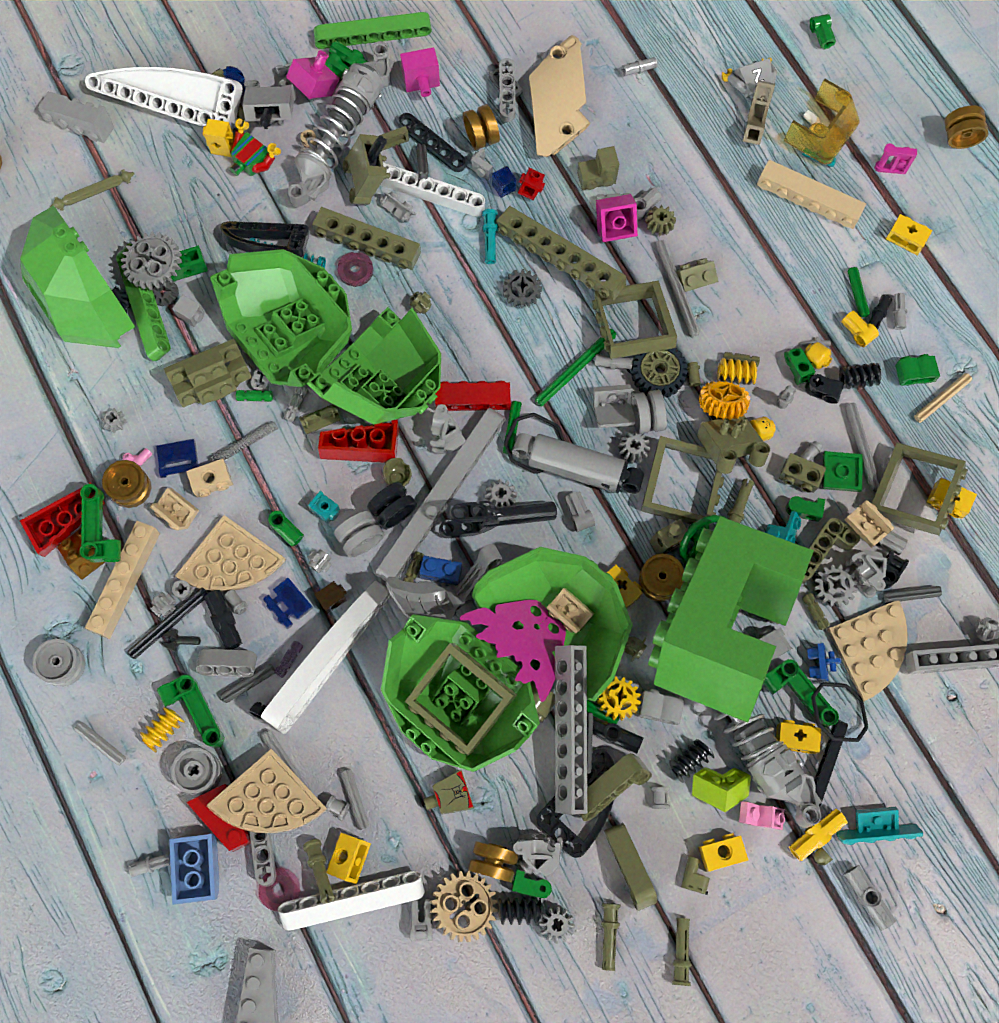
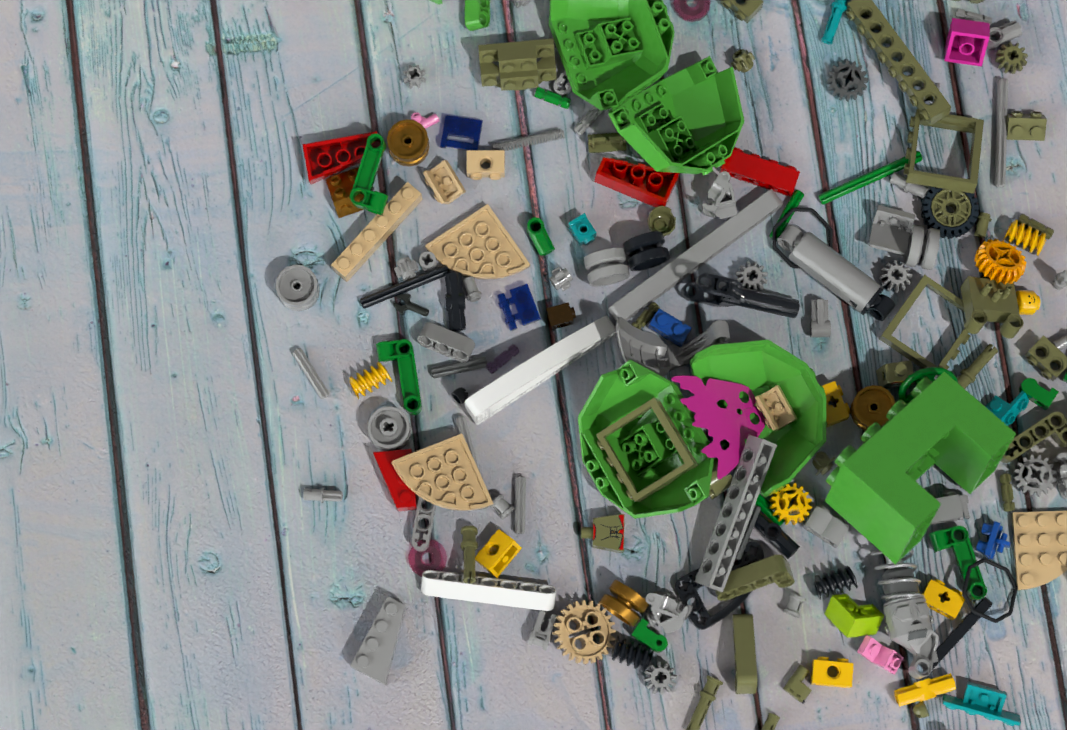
camera: 25 degrees right, 5 degrees up
(194, 869) = (361, 511): medium blue brick -> none

